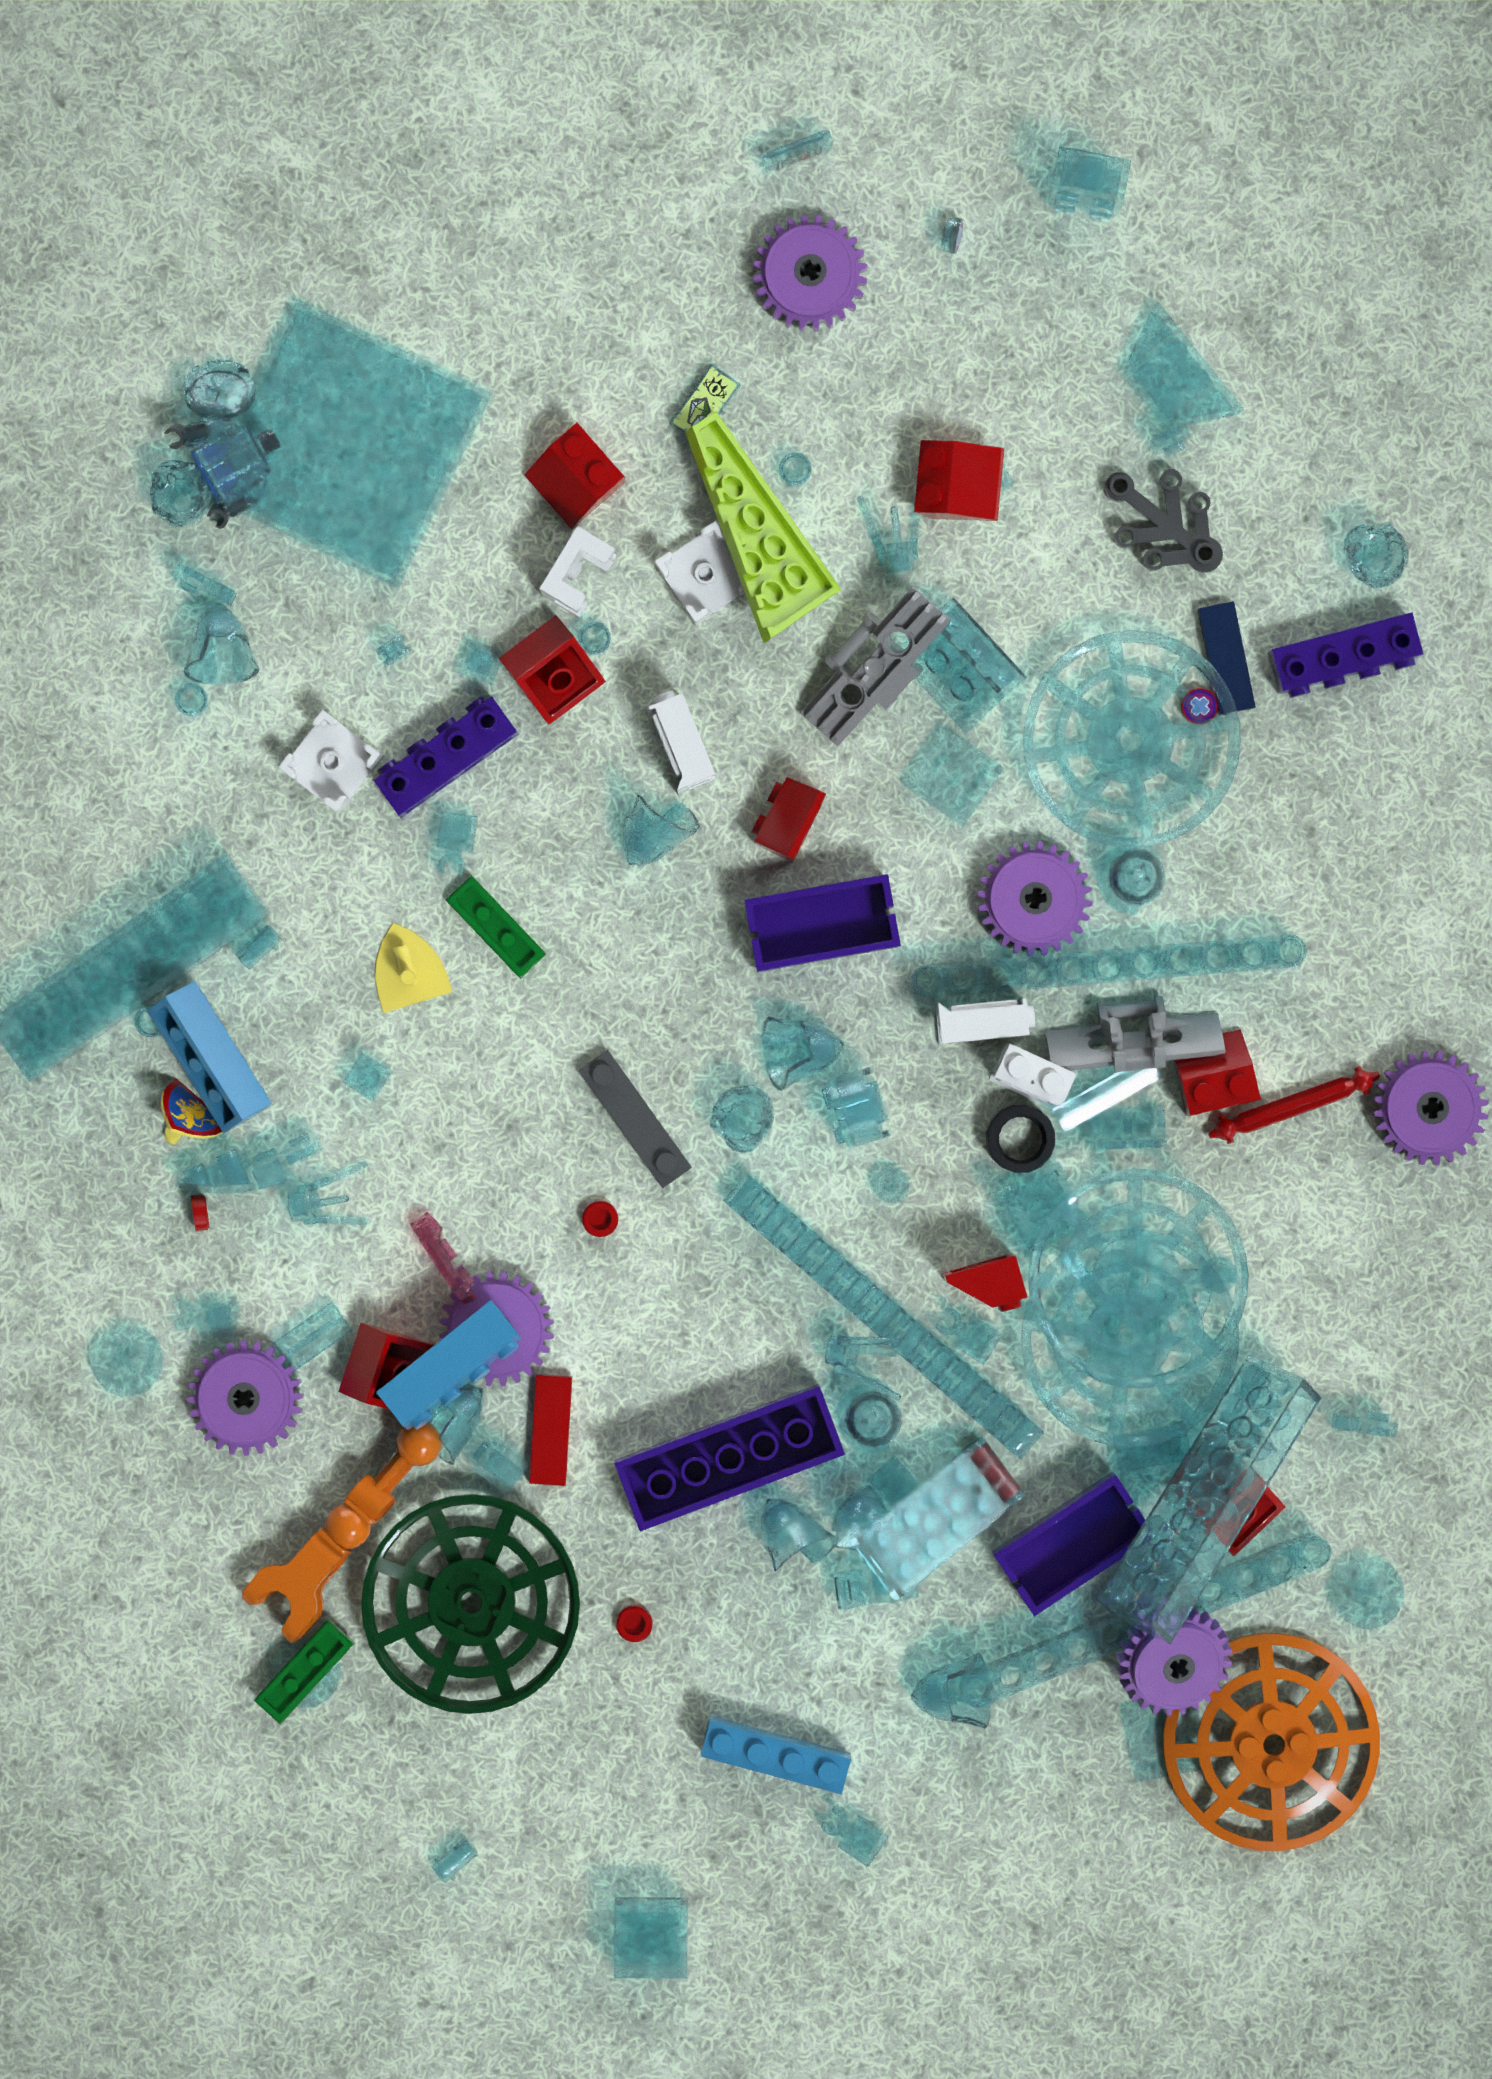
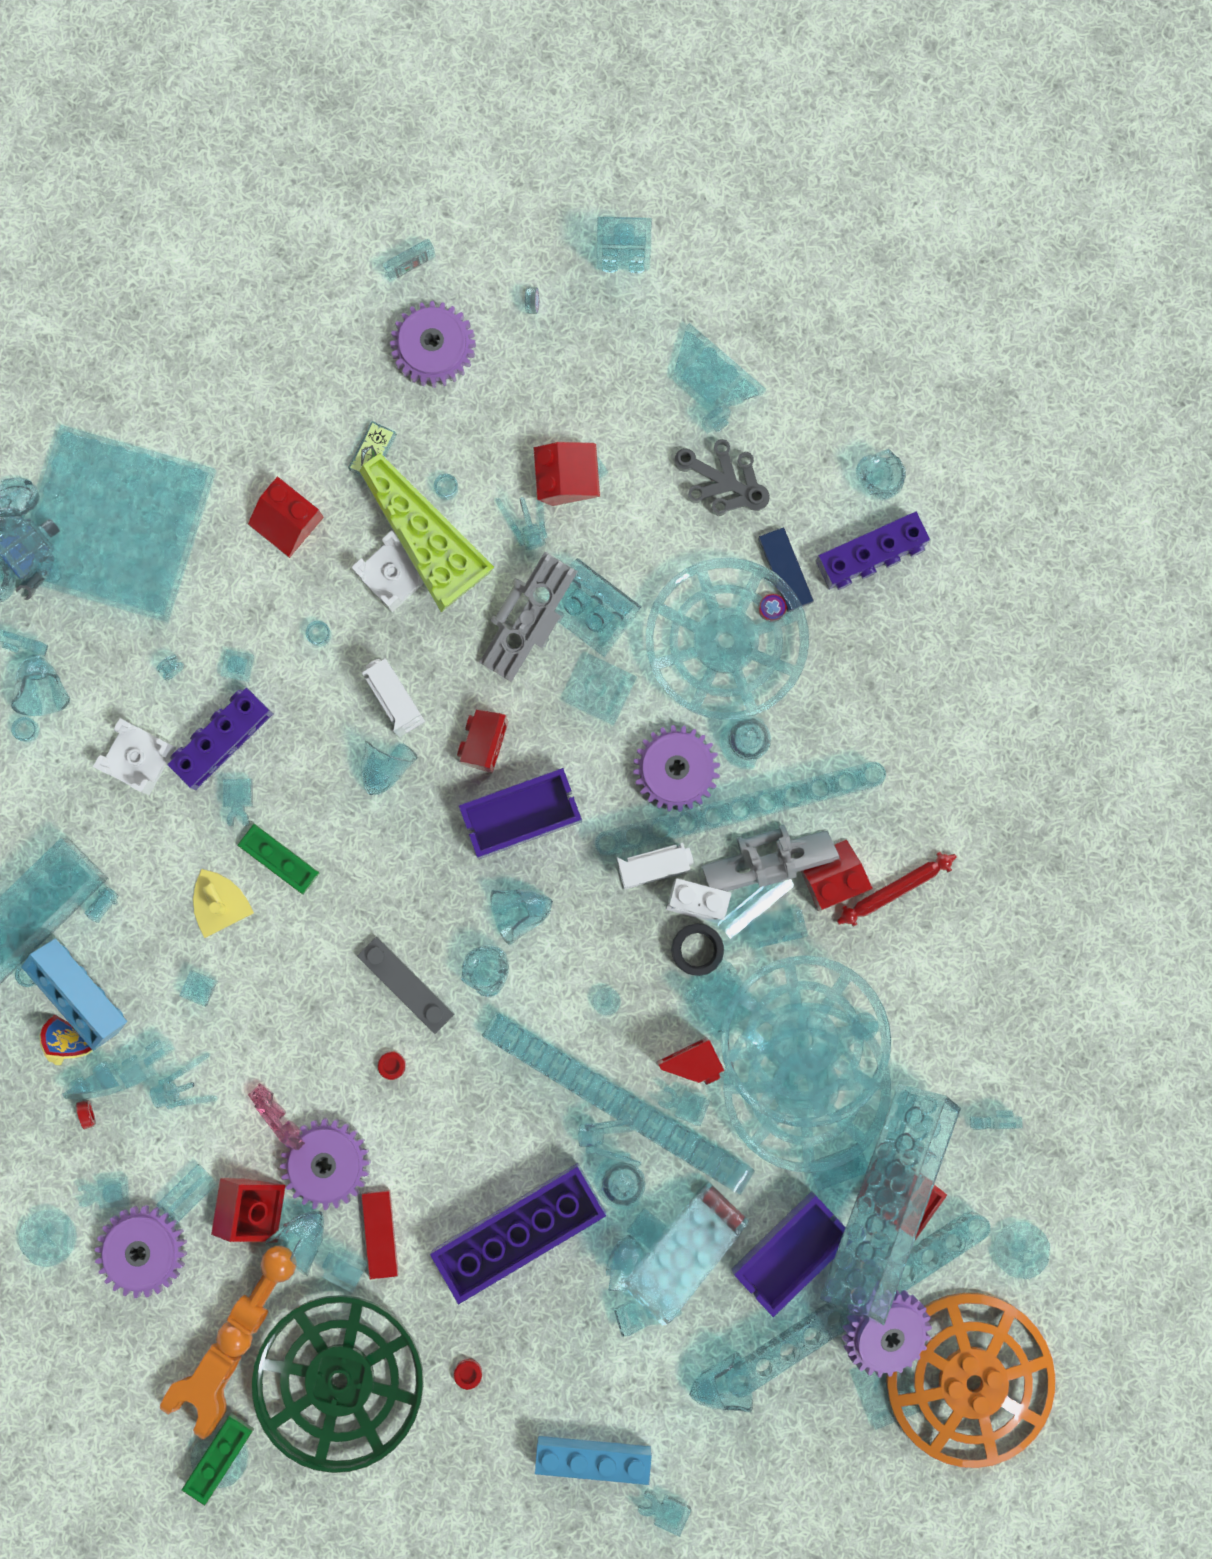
camera: 15 degrees left, 5 degrees down
(449, 1366) = (289, 1201): dark azure brick -> none
(552, 669) = (290, 661): red slope -> none
(569, 566) = (287, 581): white panel -> none
(789, 1530) = (575, 1282): clear light blue helmet -> none
(857, 1108) = (570, 948): clear light blue brick -> none
(1451, 1124) = (979, 868): medium lavender gear -> none

